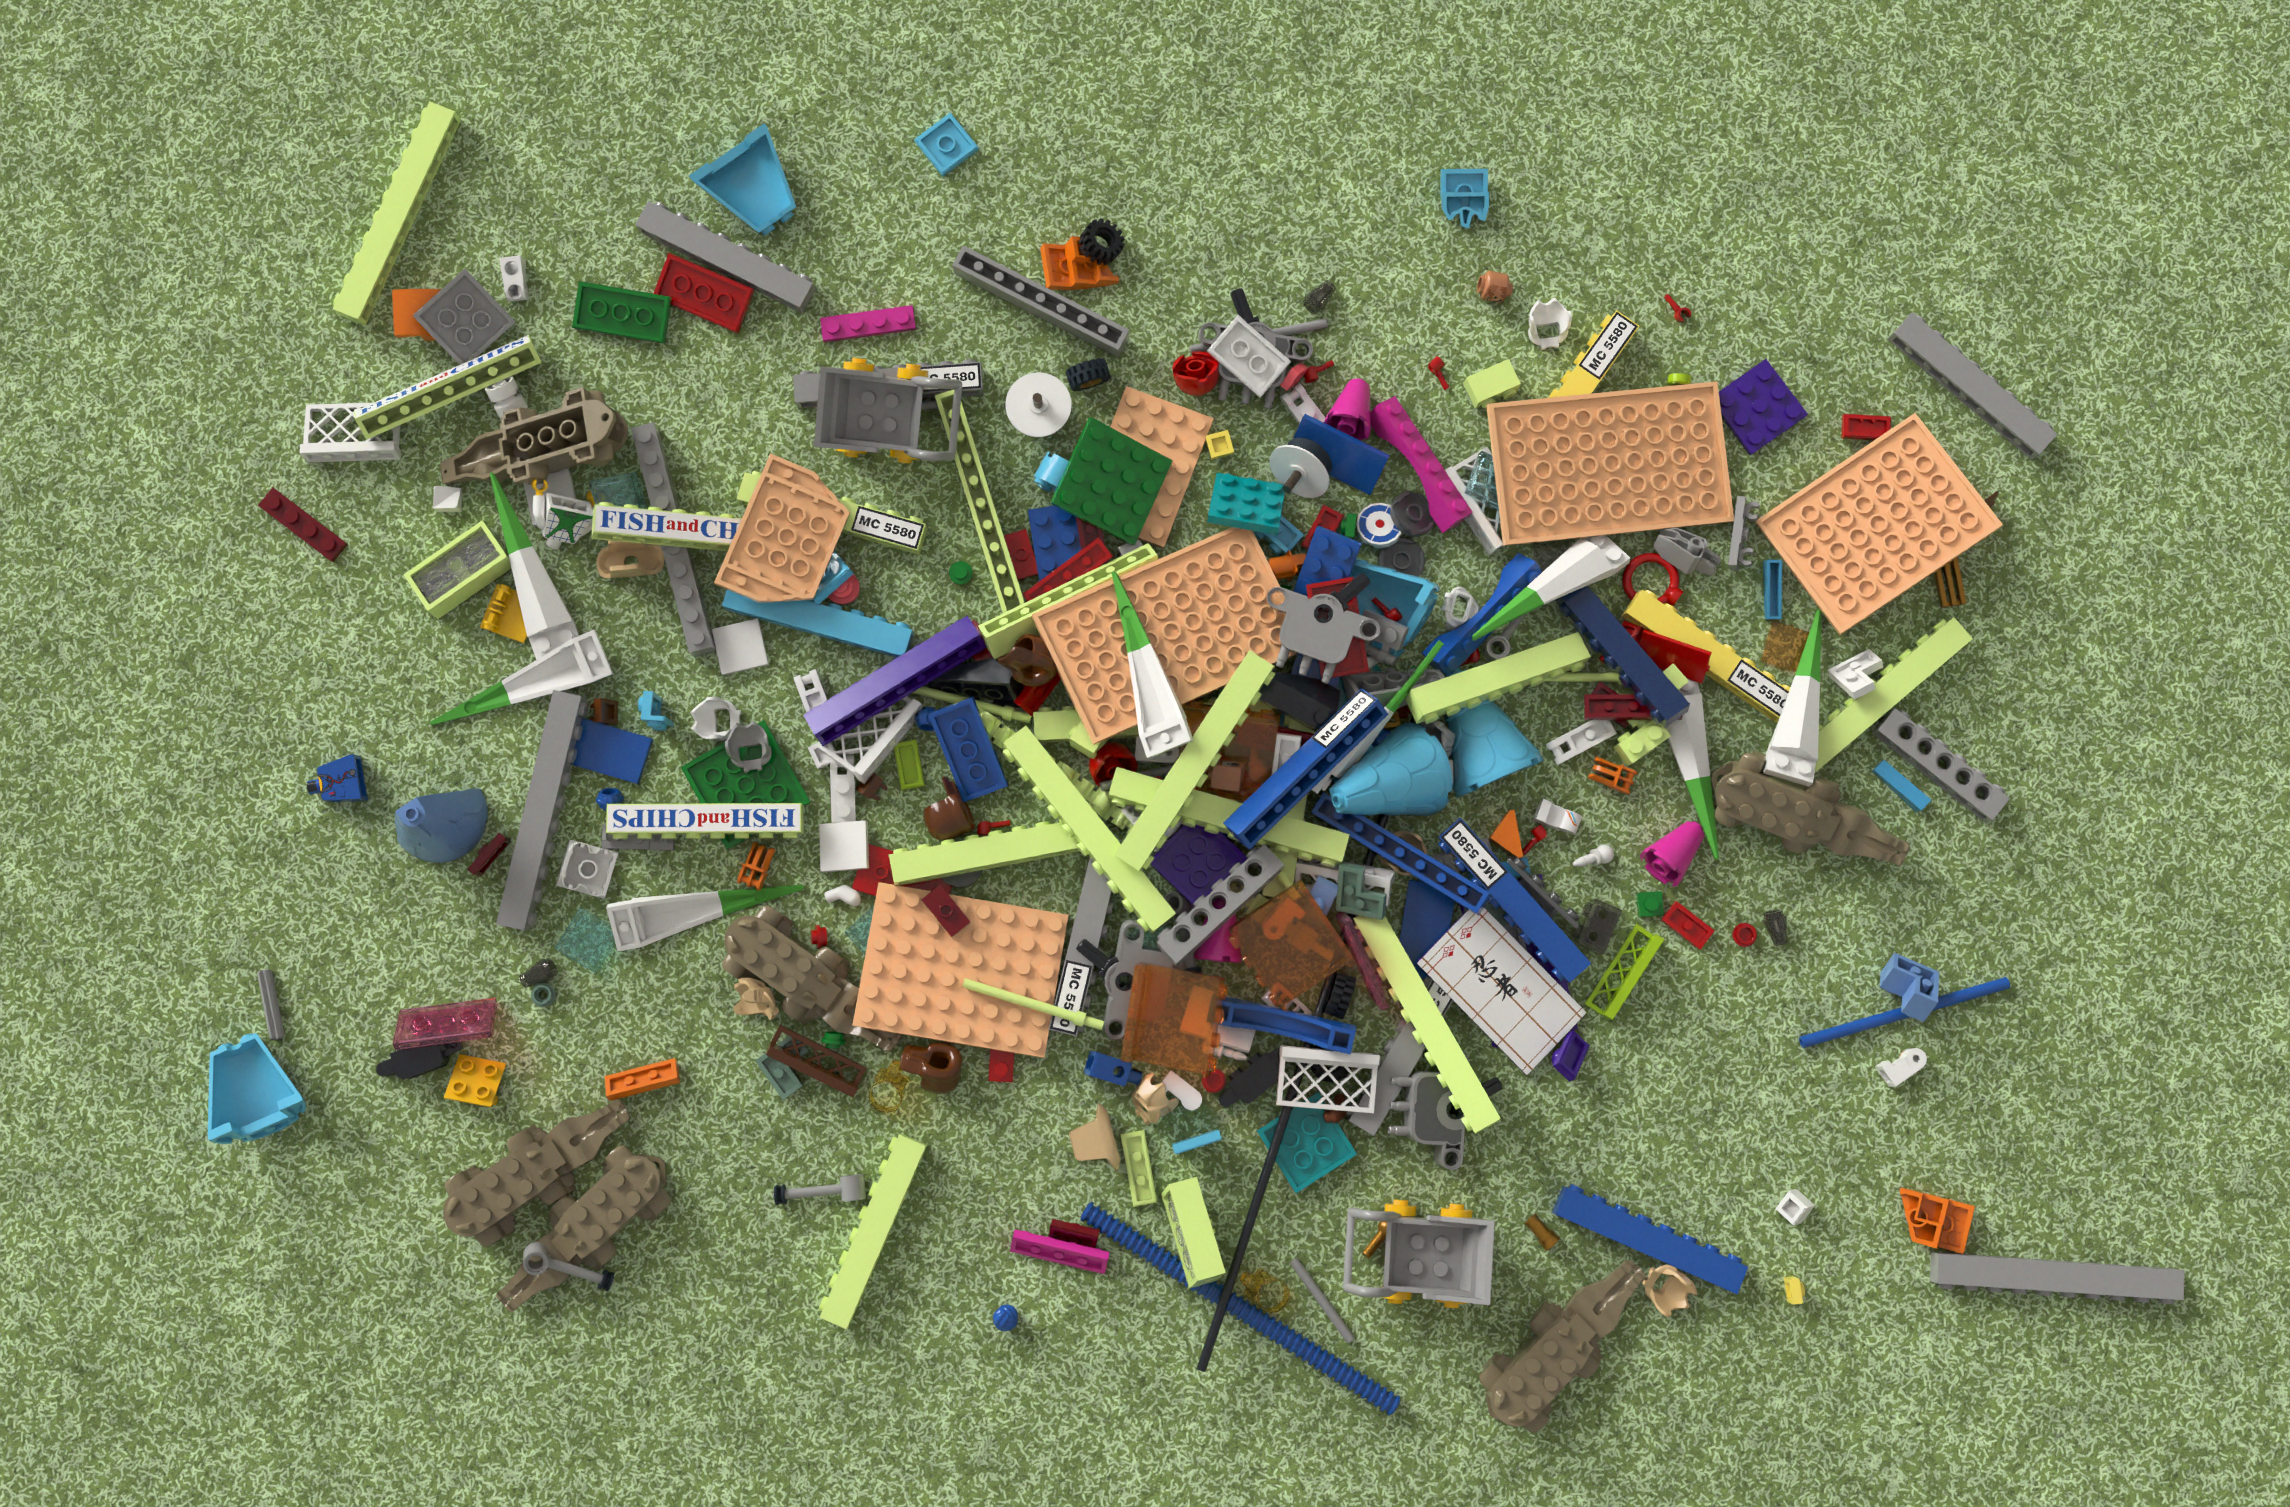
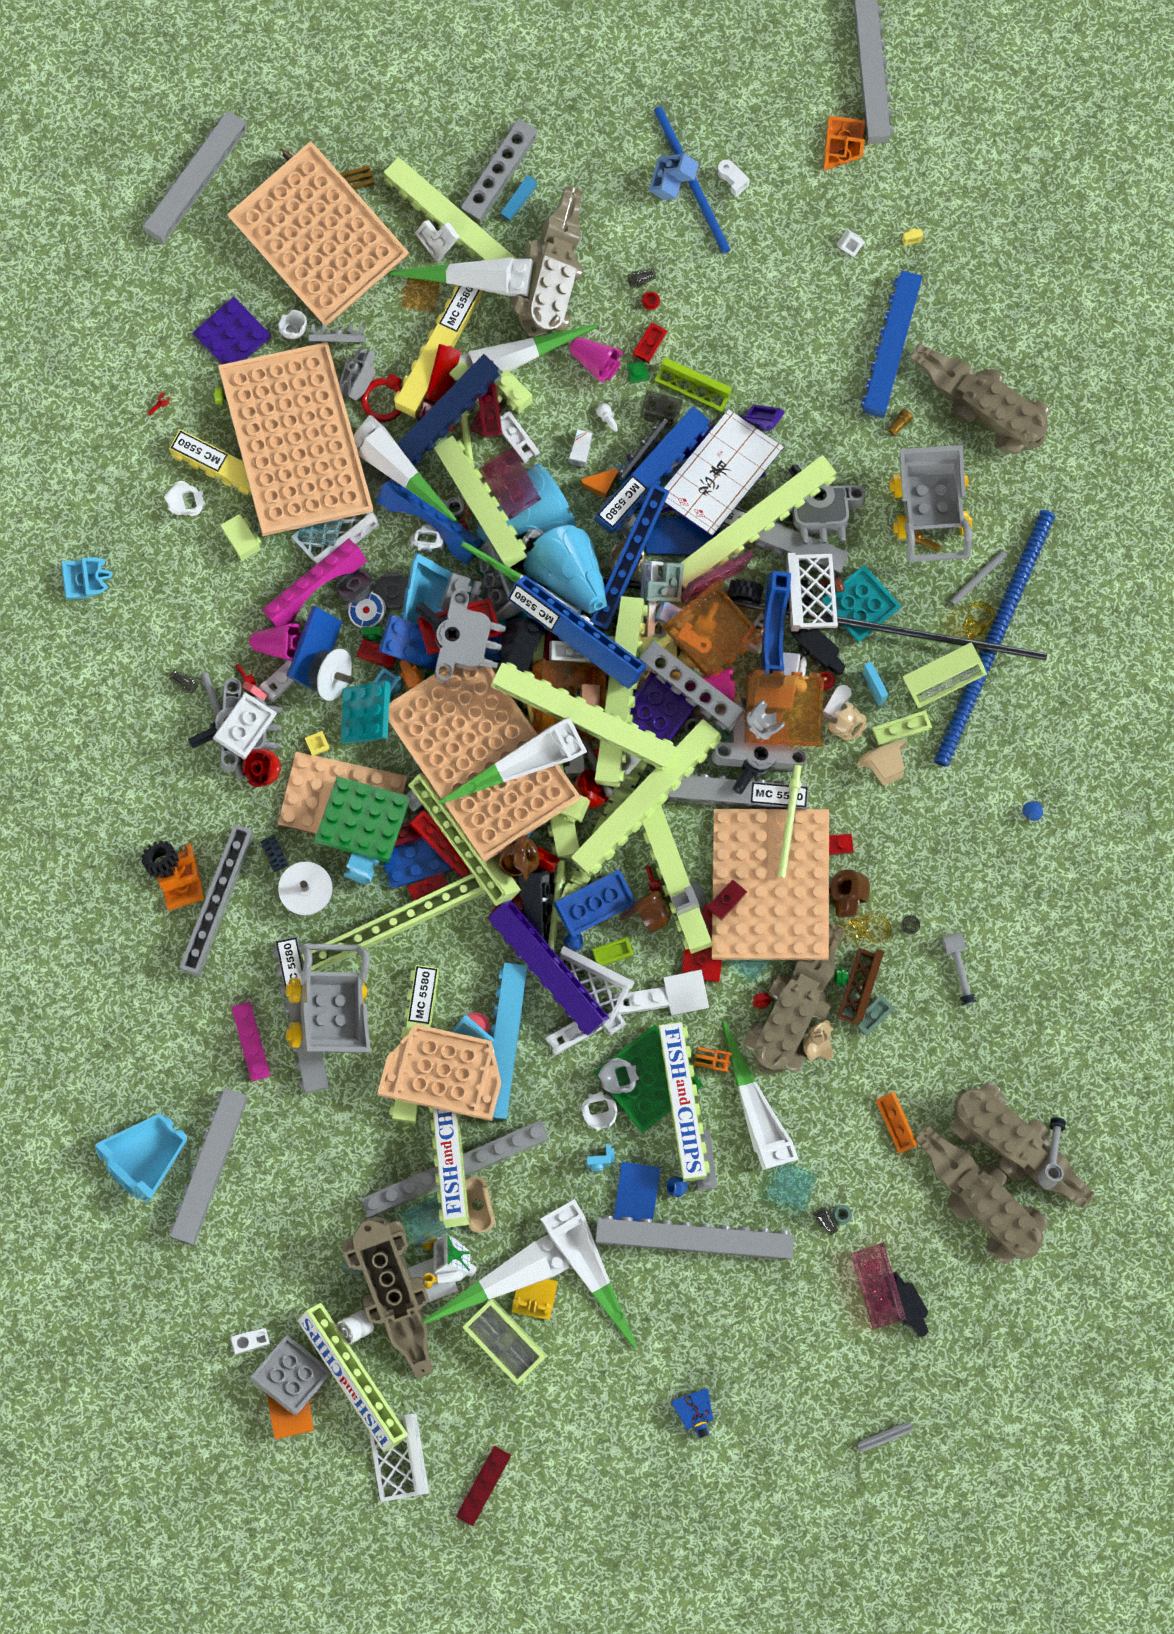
camera: 100 degrees left, 5 degrees down
(249, 1093) = (956, 1434): medium azure cone -> none
(396, 213) = (204, 1452): yellowish green brick -> none
(442, 825) = (725, 1312): medium blue cone -> none
(447, 499) = (445, 1365): white slope -> none
(475, 1081) = (919, 1256): yellow hinge -> none
(488, 854) = (735, 1277): dark red plate -> none
(586, 868) = (735, 1197): white slope -> none
(605, 711) = (605, 1202): reddish brown tile -> none
(621, 312) = (267, 1246): green plate -> none
(704, 292) = (242, 1180): red plate -> none
(740, 647) = (536, 1102): white tile -> none
(844, 893) = (724, 985): white arm -> none
(870, 787) = (636, 976): reddish brown tile -> none
(873, 1230) = (984, 922): yellowish green brick -> none
(874, 1136) = (910, 920): none -> clear smoke cone
(946, 144) = (88, 1001): medium azure tile -> none
(949, 857) = (685, 901): none -> light grey panel
(960, 573) = (450, 934): green plate -> none
(1059, 1251) = (975, 777): dark pink plate -> none
(1073, 1233) = (961, 769): dark red plate -> none
(1102, 1067) = (829, 758): blue torso -> none
(1159, 989) = (764, 722): none -> light grey helmet
(1394, 614) = (439, 591): red hand -> none
(1435, 367) = (230, 584): red hand -> none
(1494, 287) = (159, 545): nougat head -> none
(1517, 720) = (511, 483): none -> clear pink plate
(1539, 834) = (595, 459): red hand -> none
(1613, 775) = (542, 408): orange arm -> none
(1673, 1292) = (929, 323): tan helmet -> none
(1761, 480) = (293, 325): none -> white hair
(1772, 589) = (376, 308): dark azure piece -> none
(1864, 426) = (238, 252): red plate -> none

